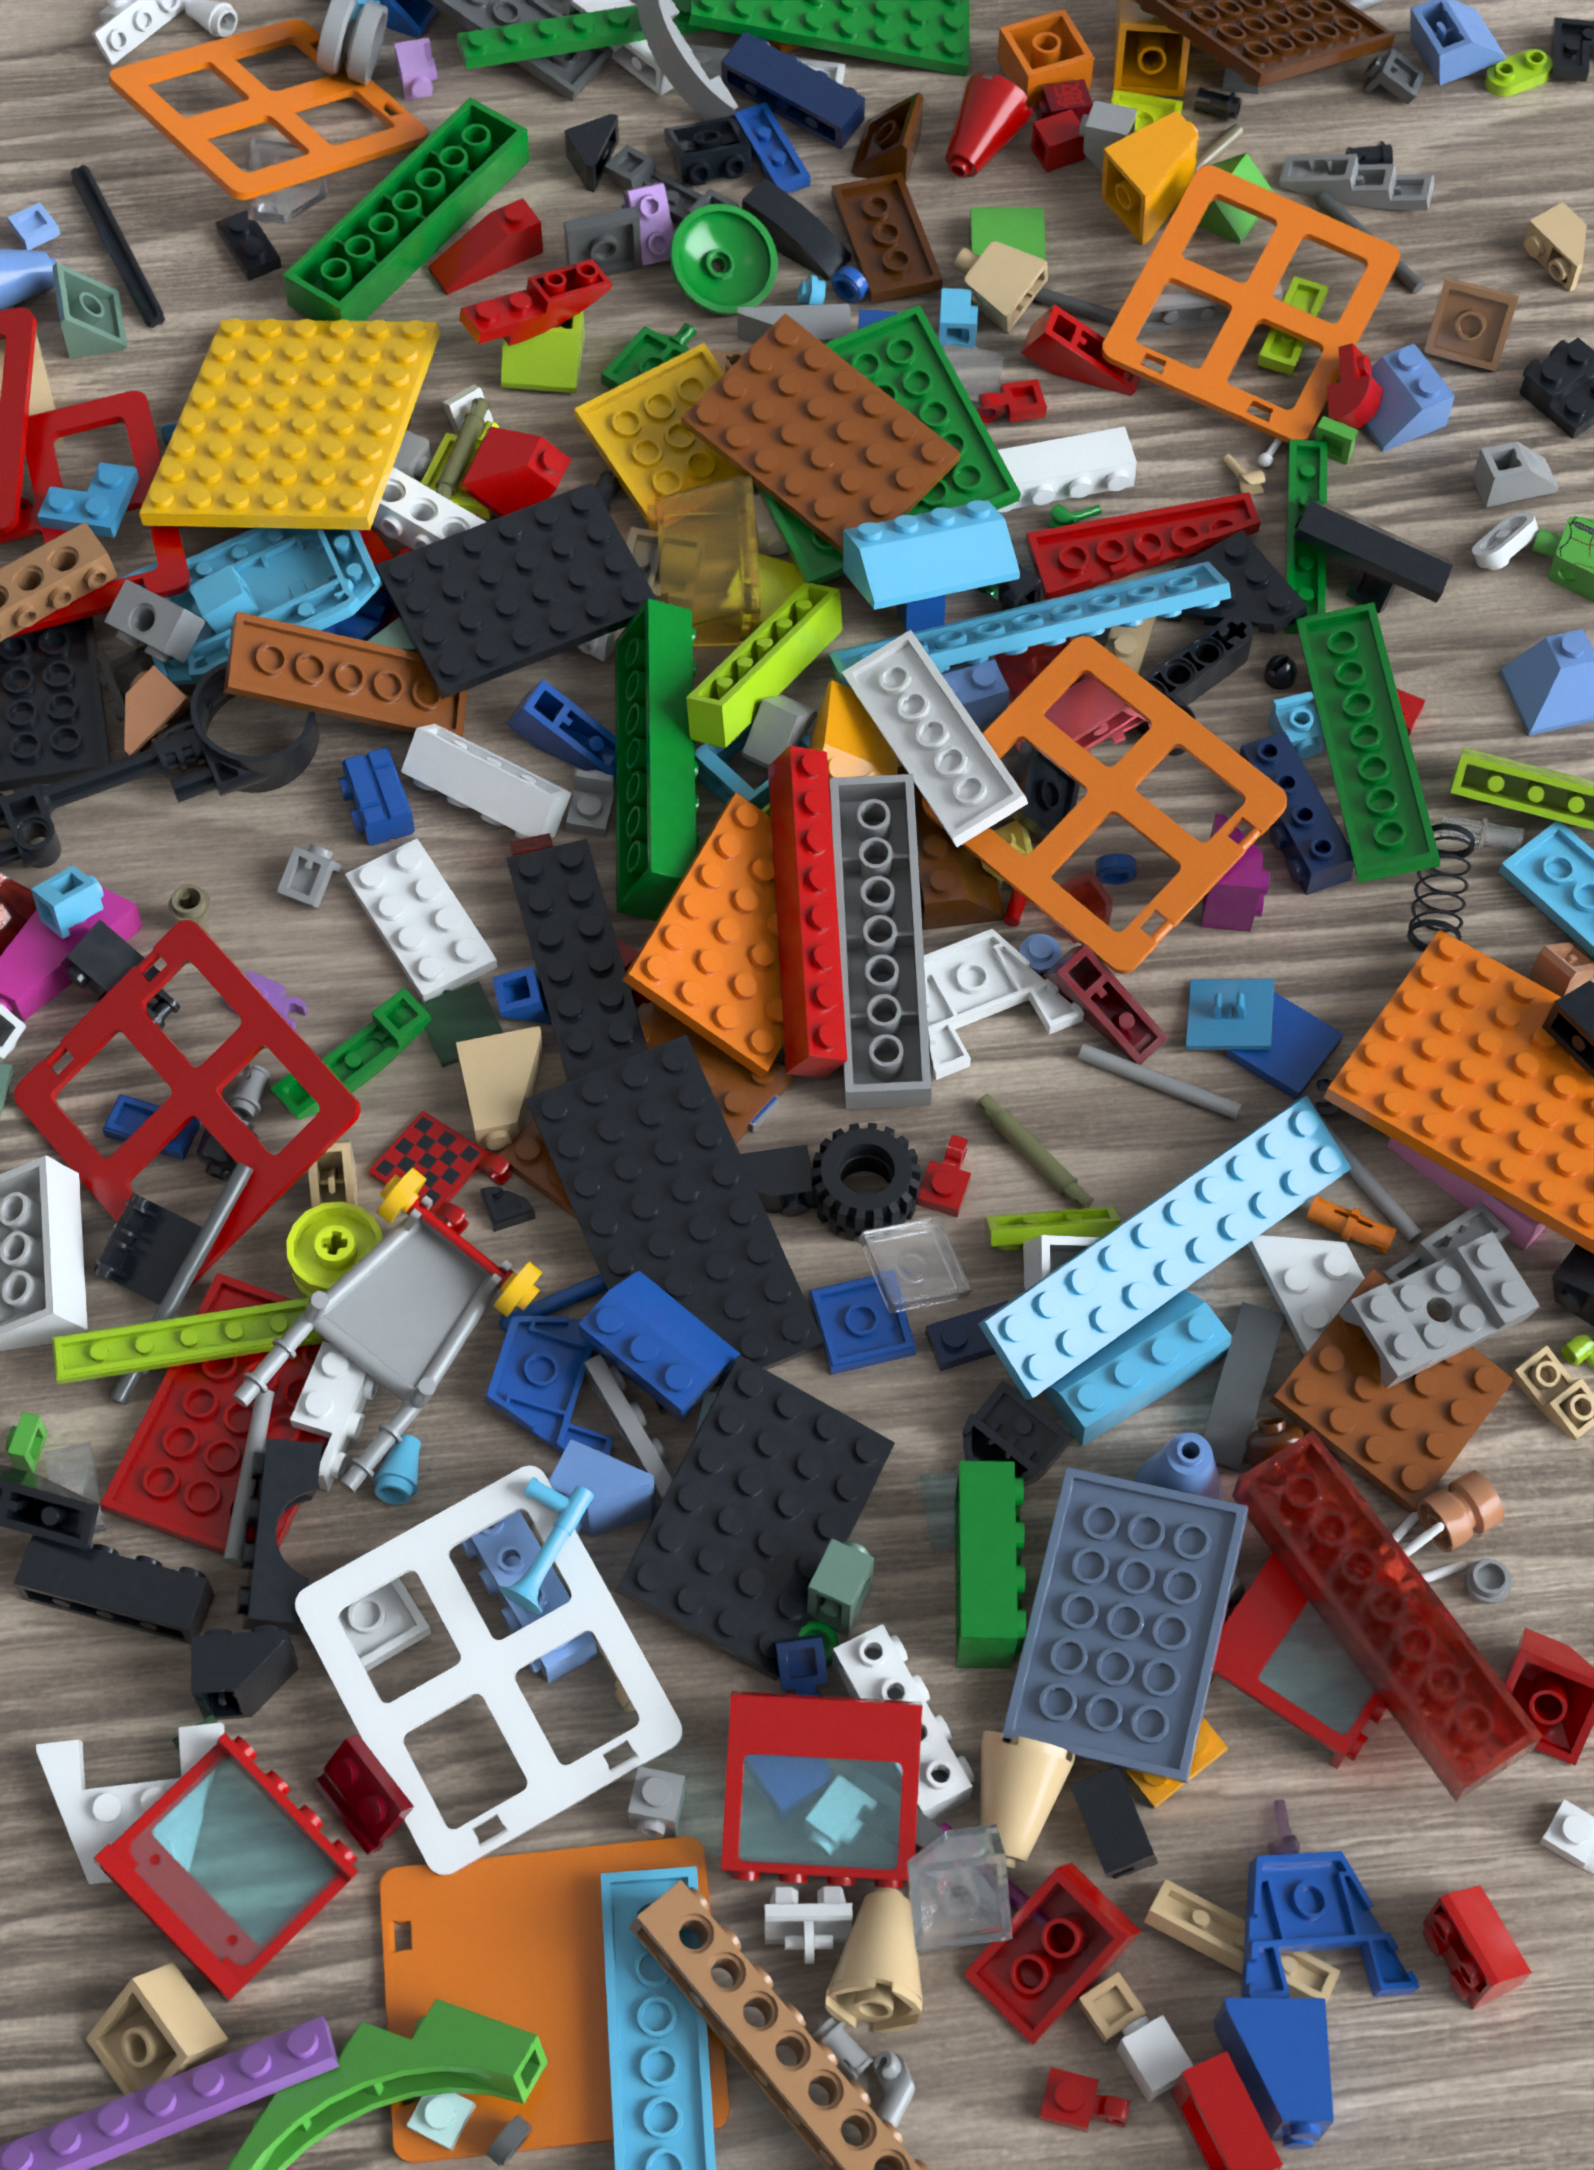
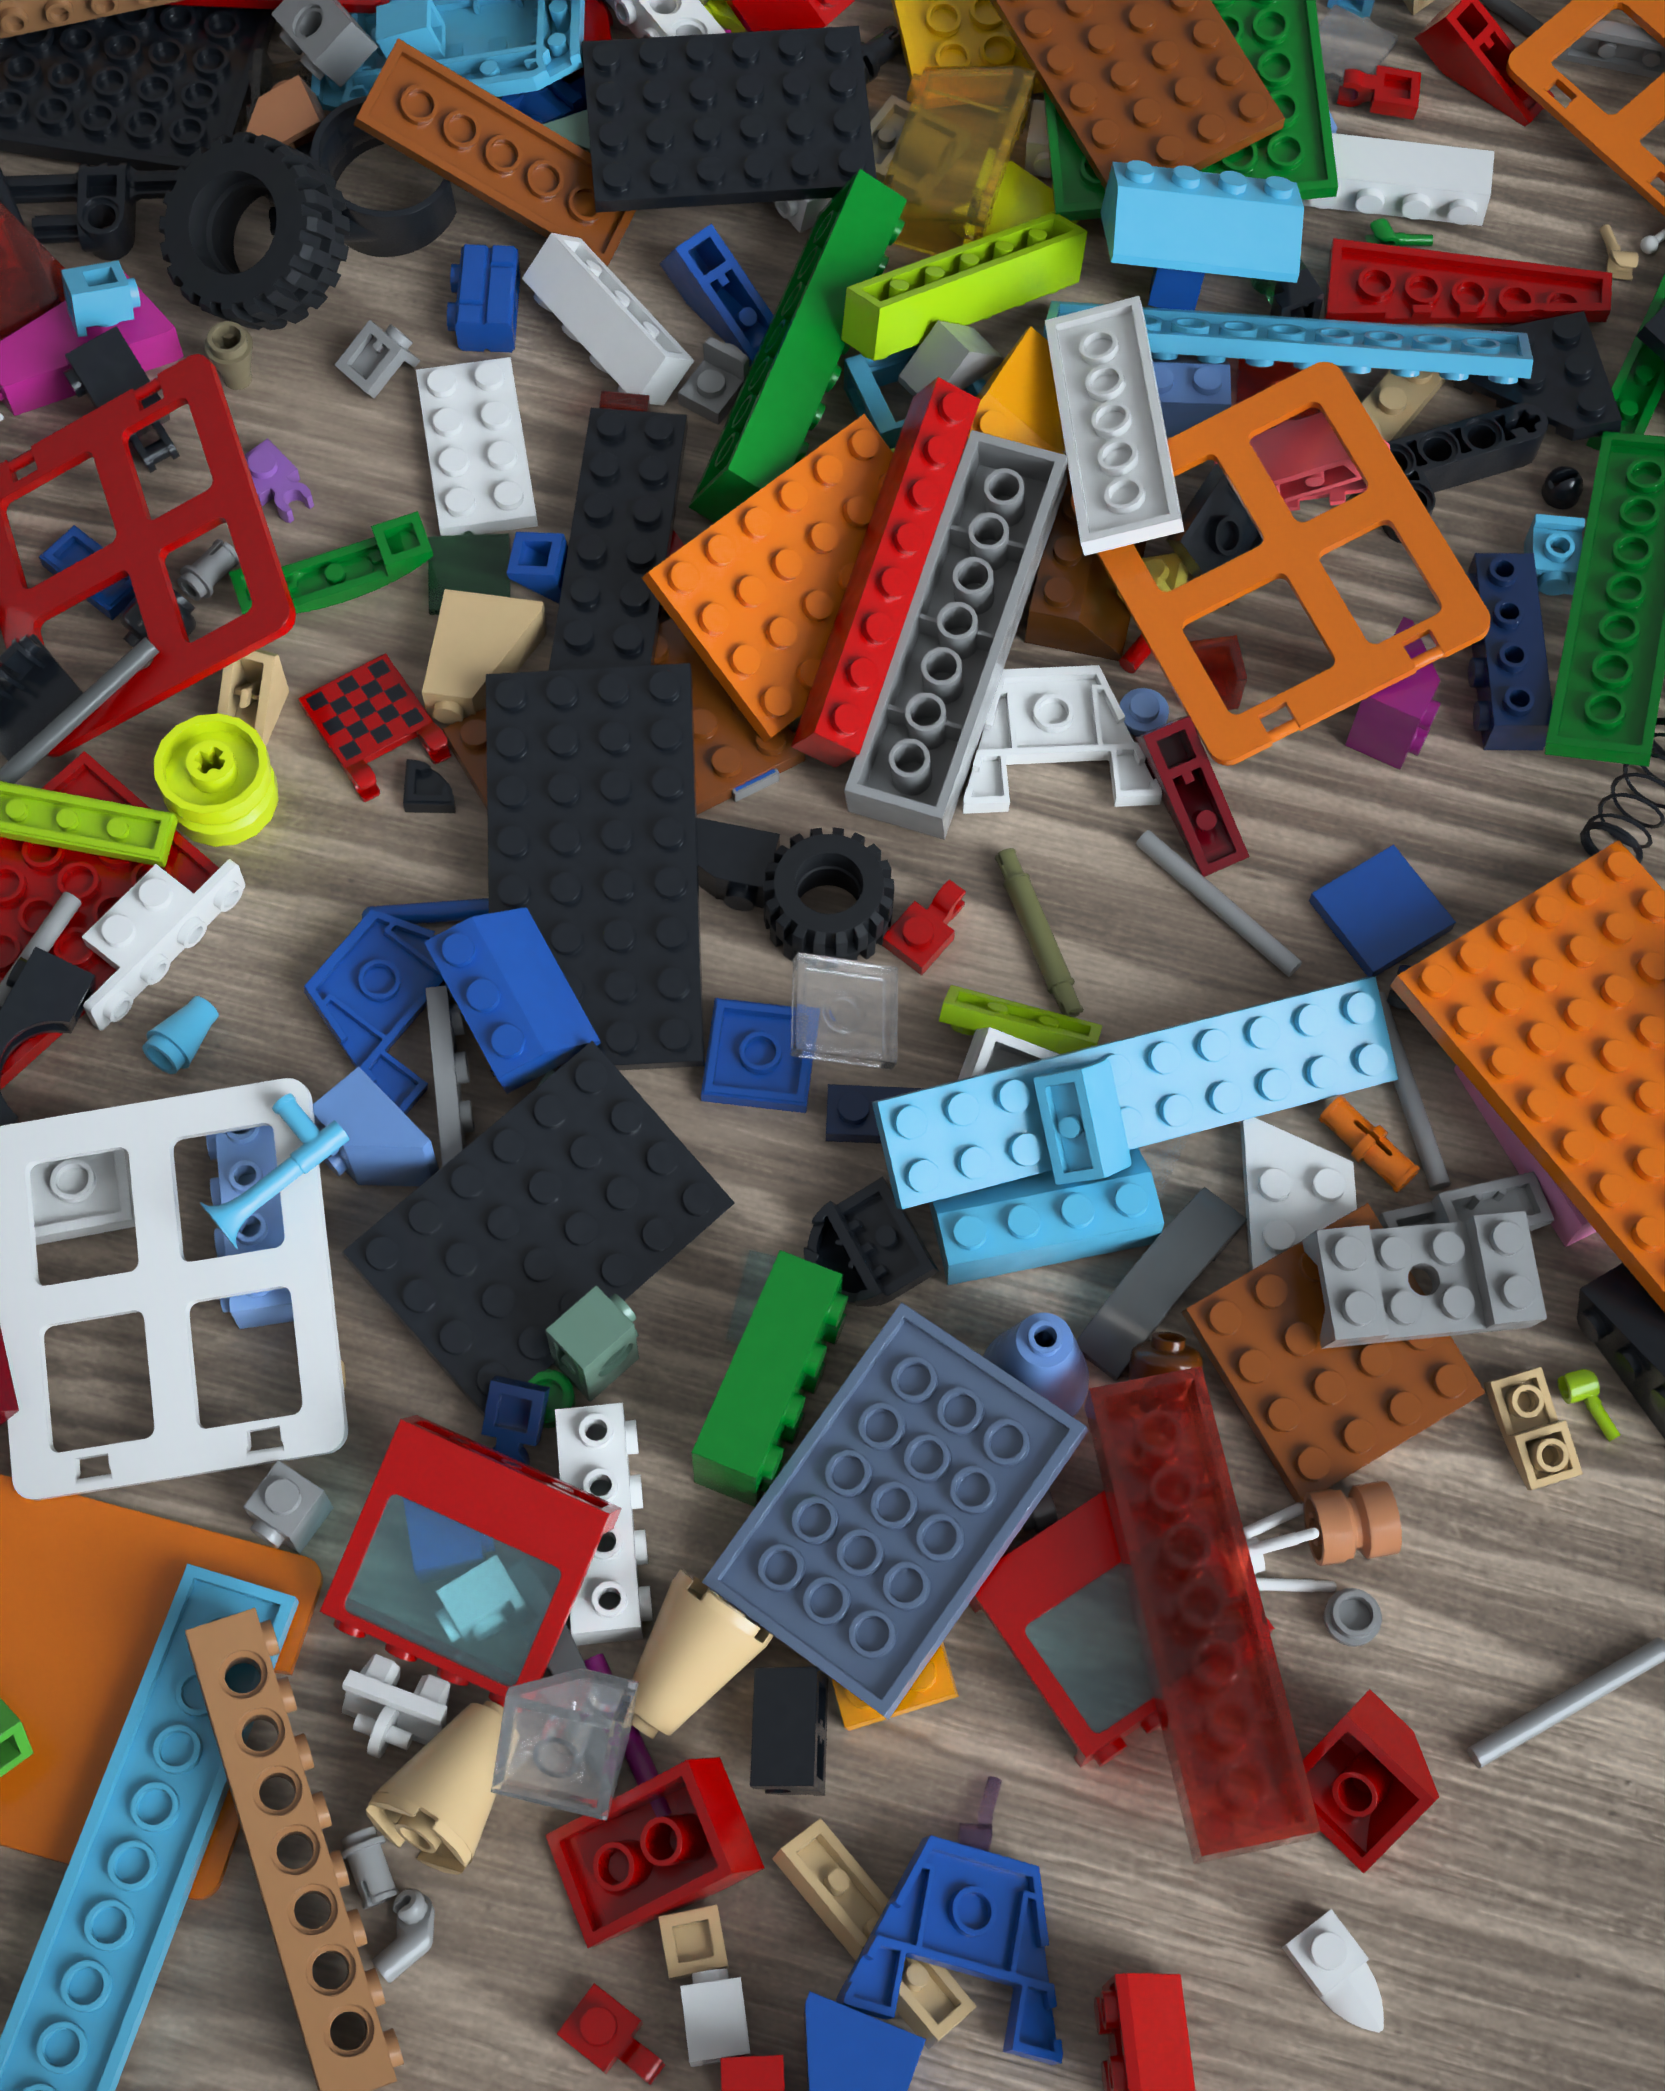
camera: 20 degrees right, 5 degrees up
(125, 793) = (204, 220): none -> black tyre
(402, 1312) = (250, 860): light grey piece -> none
(1115, 868) = (1271, 645): blue tile -> none
(1142, 1283) = (1082, 1123): none -> medium azure panel
(1230, 1014) = (1333, 854): dark azure piece -> none

